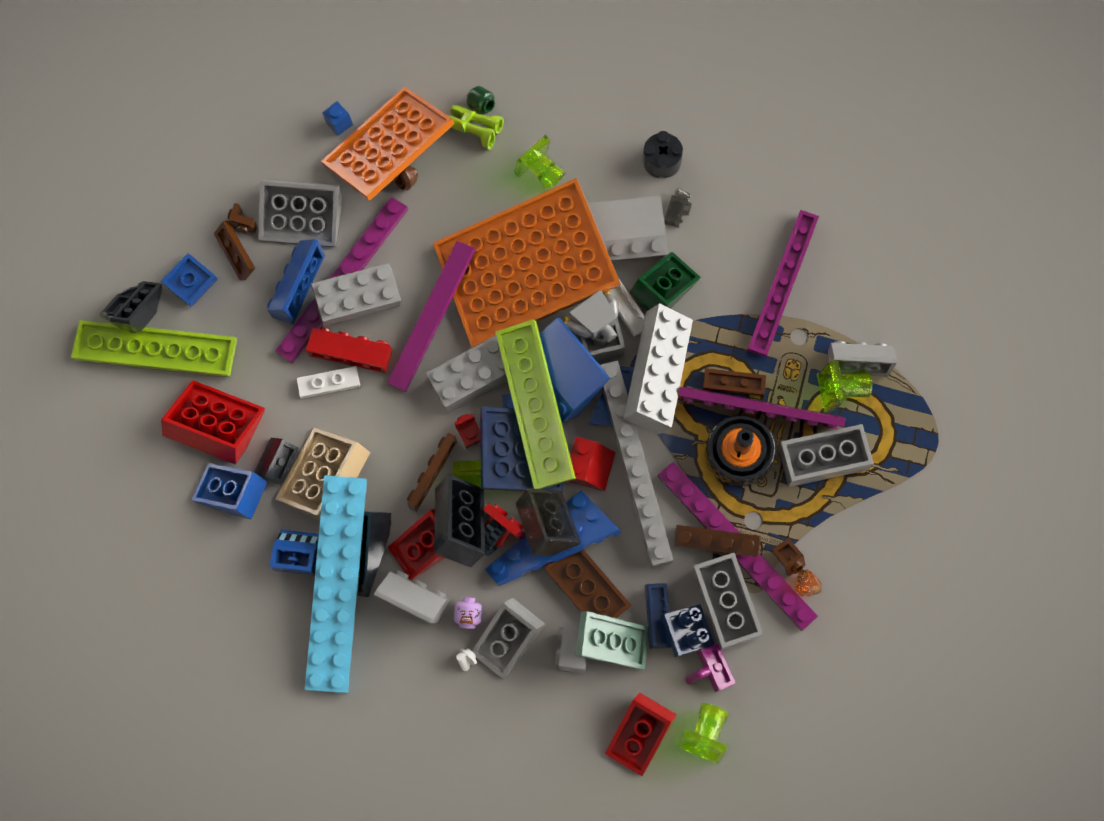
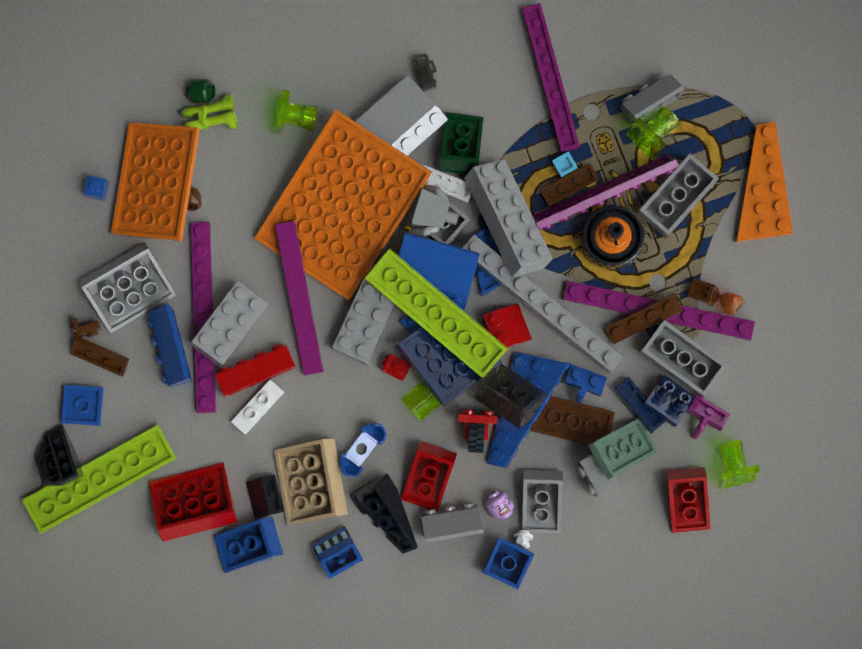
camera: 40 degrees left, 10 degrees up
(336, 584) = (387, 554): medium azure plate -> none
(403, 473) = (370, 435): none -> blue piece
(435, 465) = (390, 410): reddish brown plate -> none
(435, 670) = (508, 563): none -> blue brick
(459, 521) = (446, 442): black brick -> none
(623, 559) = (585, 381): none -> blue plate
(662, 155) = (391, 41): black brick -> none
(742, 361) = (564, 164): none -> medium azure plate
(904, 515) = (765, 197): none -> orange wing

